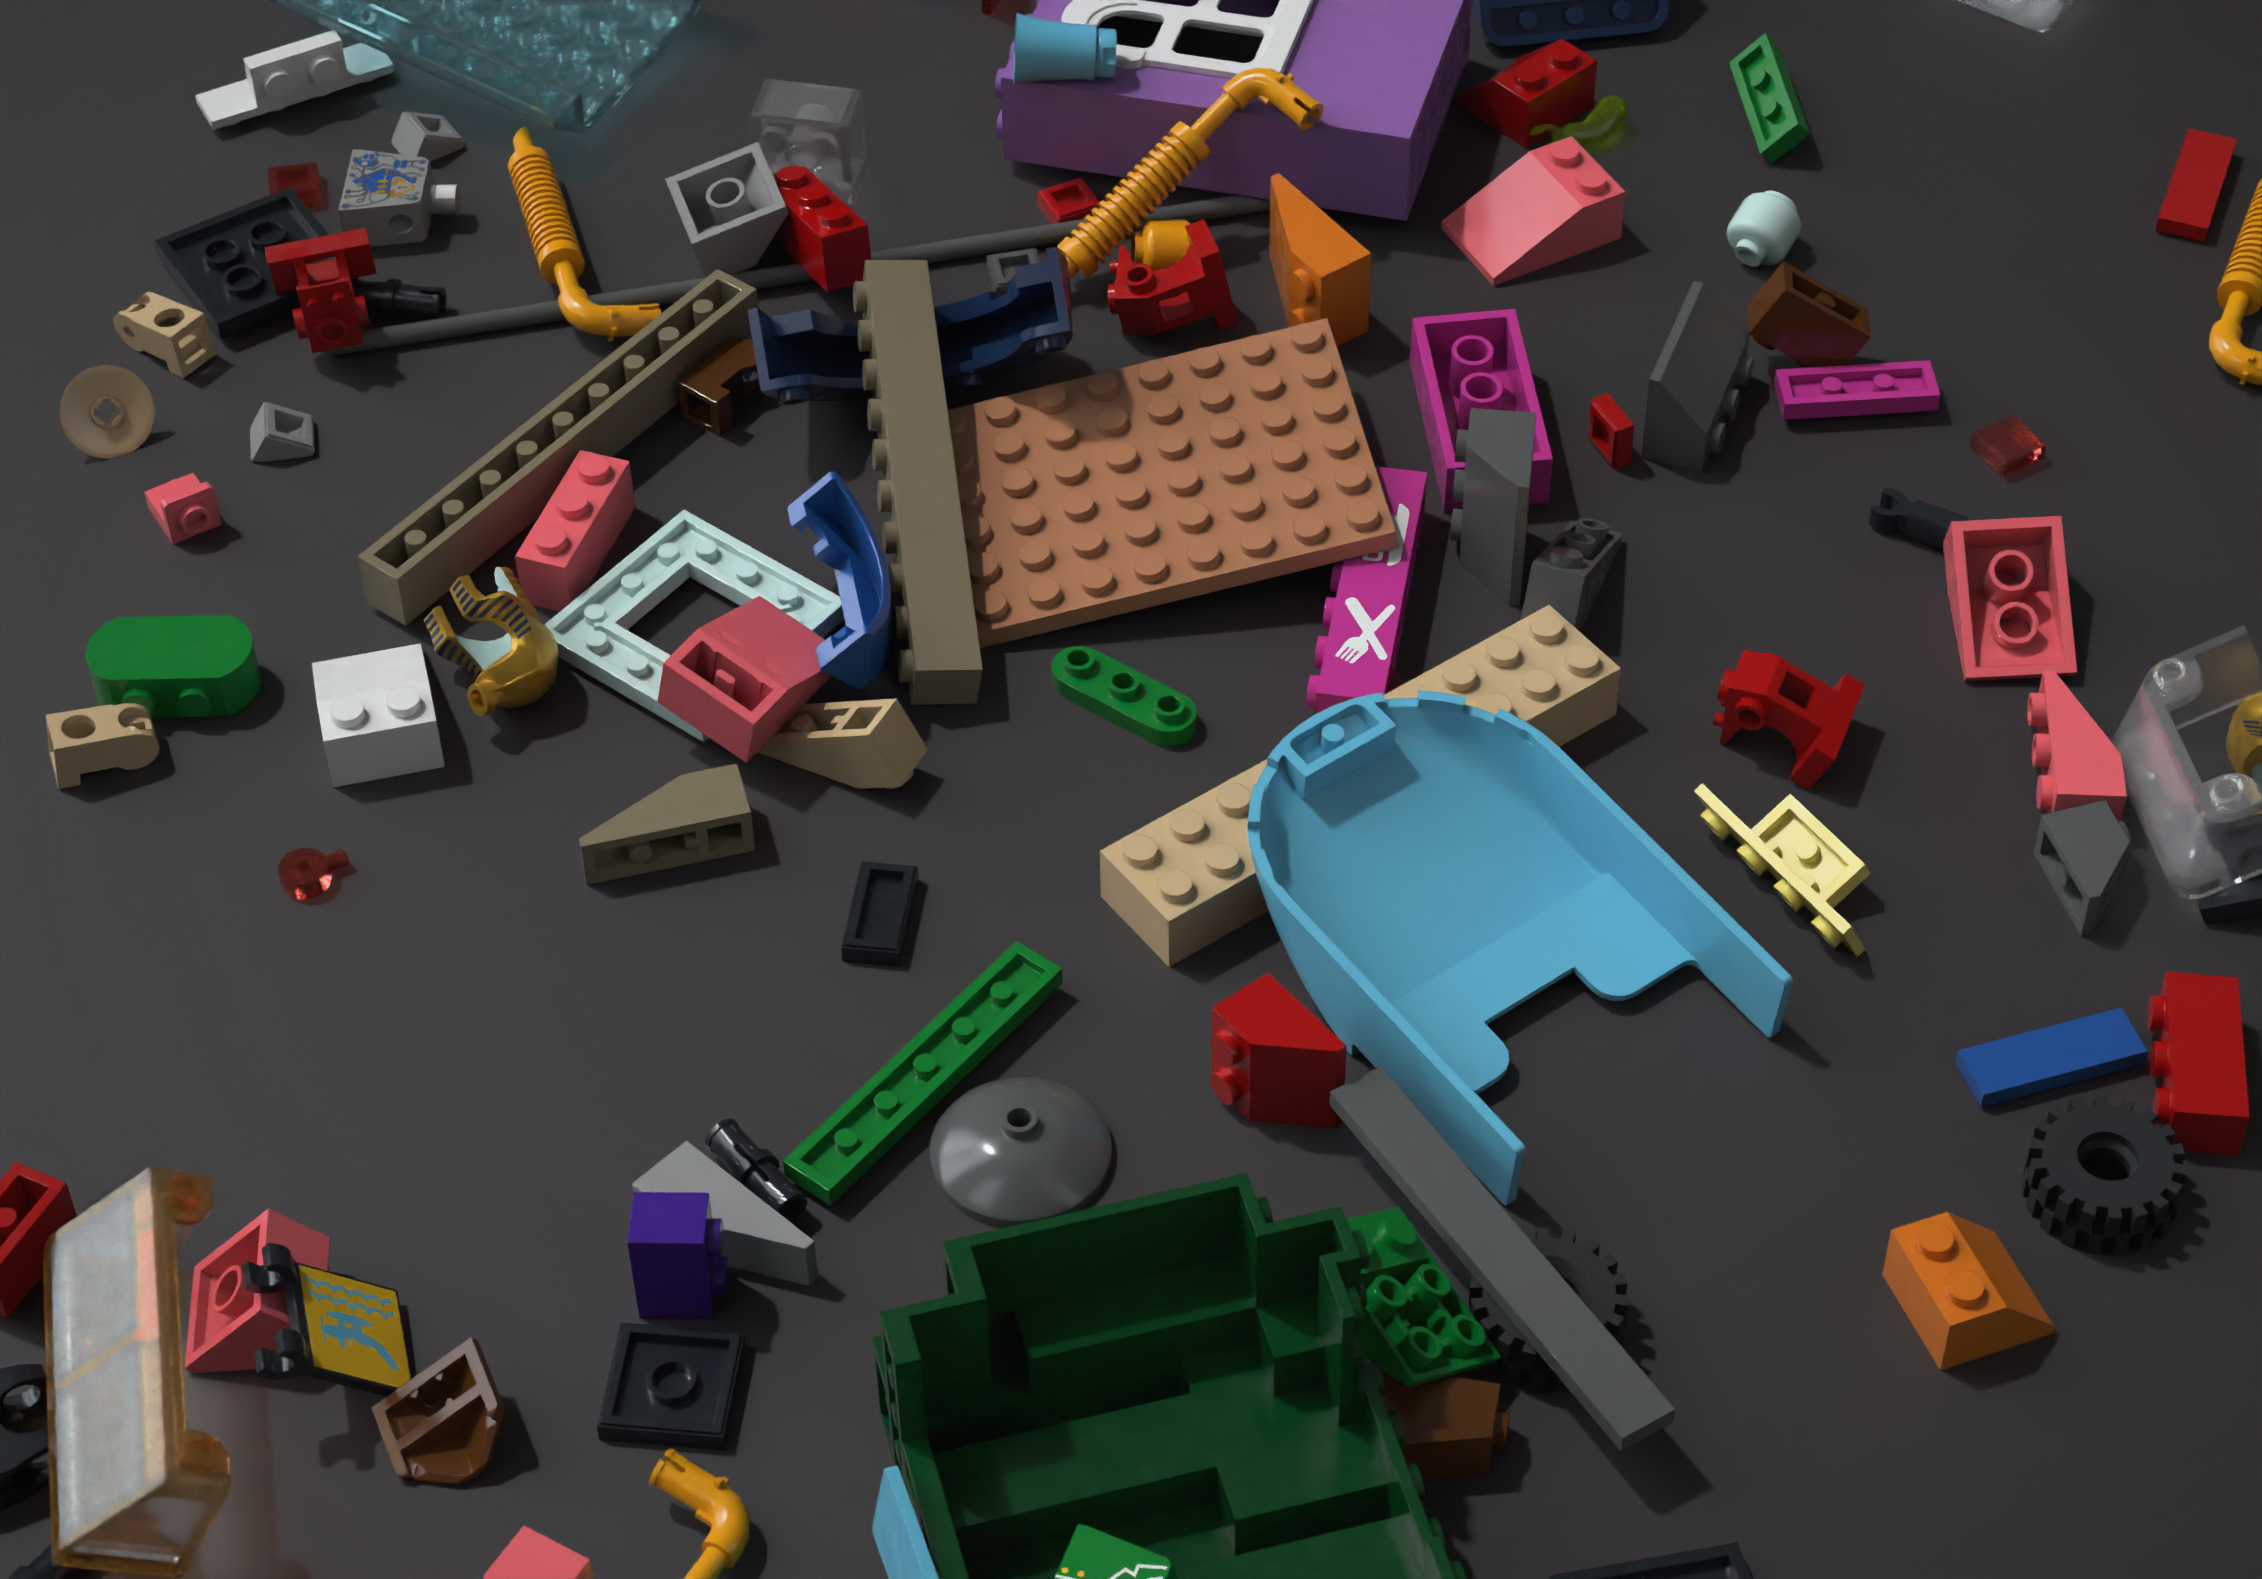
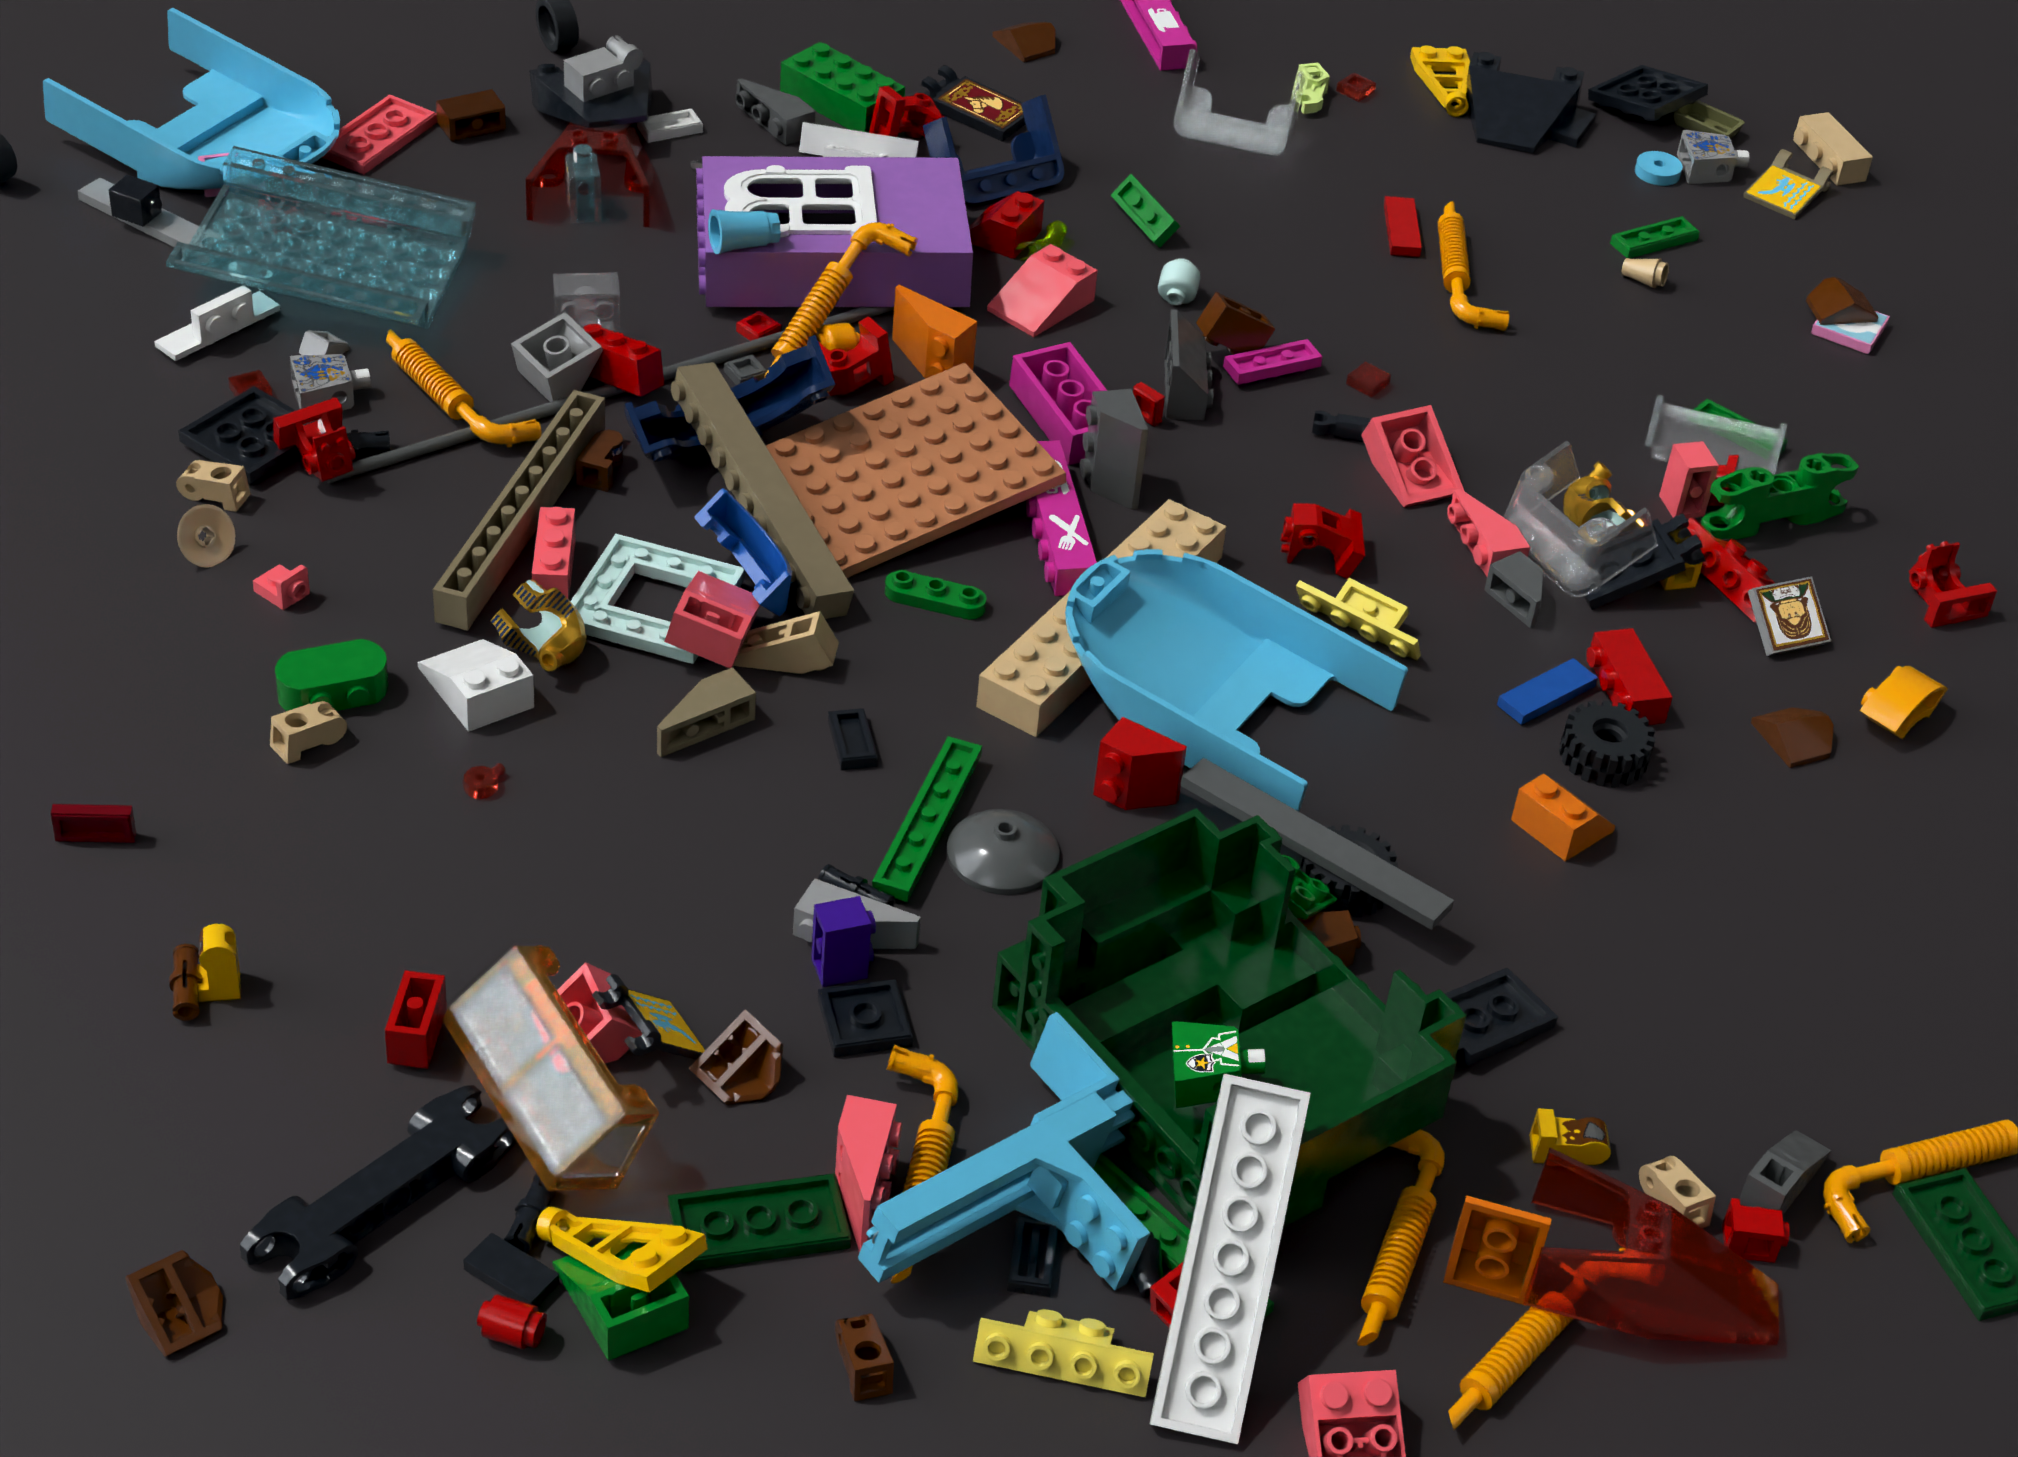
camera: 25 degrees left, 5 degrees down
(281, 434) = (322, 533): light grey slope -> none
(1572, 570) = (1163, 481): dark grey slope -> none

